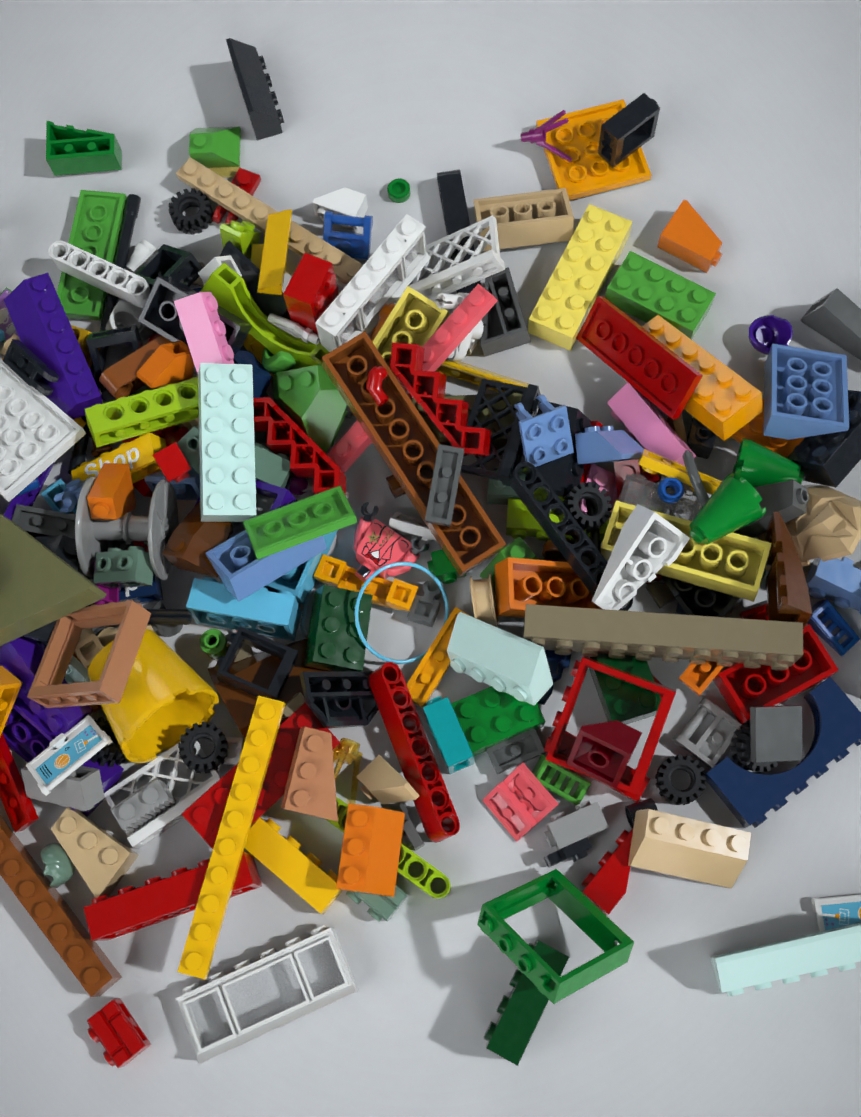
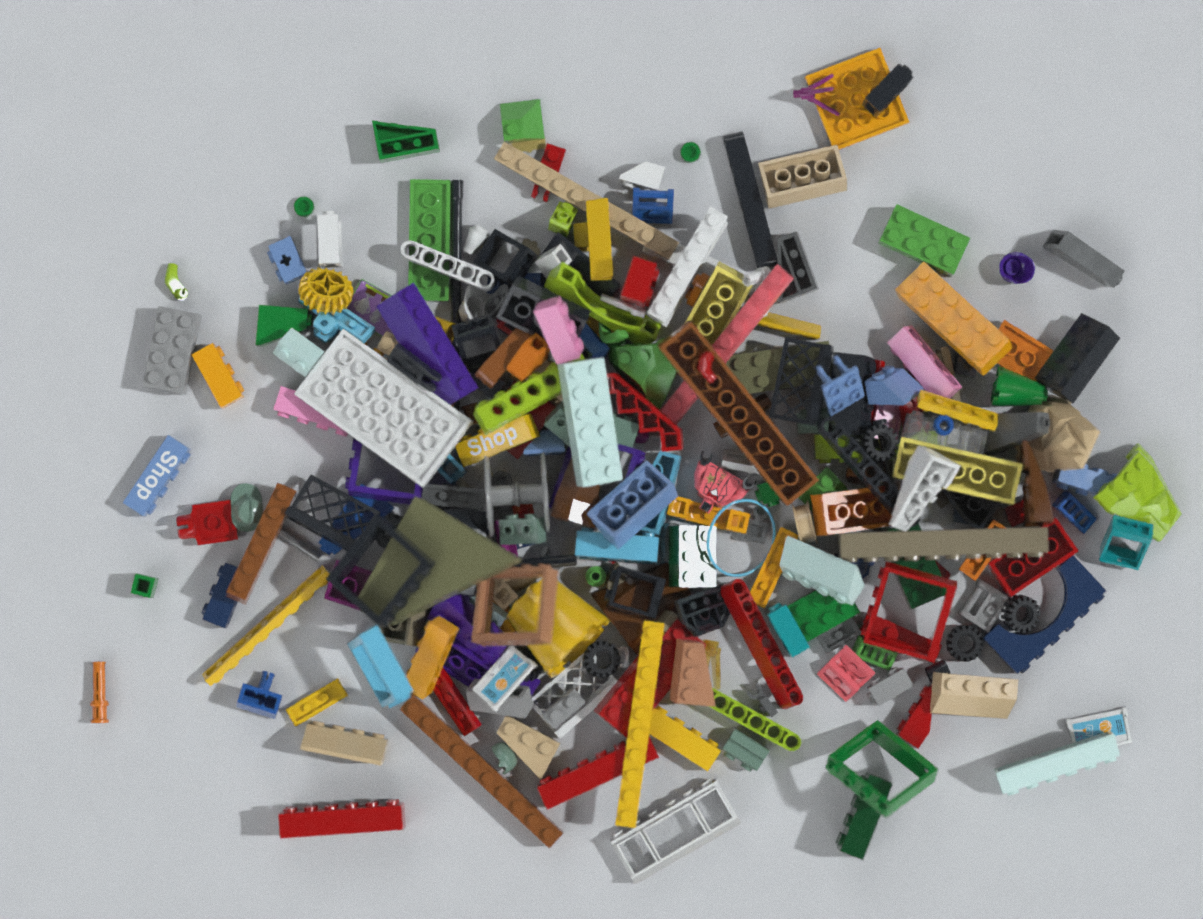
camera: 15 degrees left, 15 degrees up
(70, 495) = (467, 467): medium blue plate -> none
(112, 492) = (501, 469): orange slope -> none
(117, 1033) = (570, 871): red brick -> none
(173, 463) = (548, 441): red brick -> none
(187, 200) = (510, 203): black tyre -> none
(255, 89) = (550, 66): black slope -> none
(299, 522) = (657, 482): bright green tile -> none
(370, 850) = (740, 723): orange slope -> none
(385, 783) = (743, 671): tan slope -> none
(429, 392) = (761, 379): red brick -> none
(444, 485) = (767, 442): dark grey plate -> none
(460, 273) = (759, 241): white fence -> none
(575, 851) = (891, 706): black plate -> none
(579, 277) = (855, 226): light yellow brick -> none
(604, 750) = (907, 634): dark red slope -> none
(639, 357) = (909, 307): red plate -> none
(691, 239) = (947, 181): orange slope -> none
(695, 477) = (962, 416): dark grey piece -> none
(727, 510) = (986, 445): green cone -> none
(776, 733) = (1033, 604): dark grey tile -> none
(804, 393) = (1046, 323): medium blue slope -> none

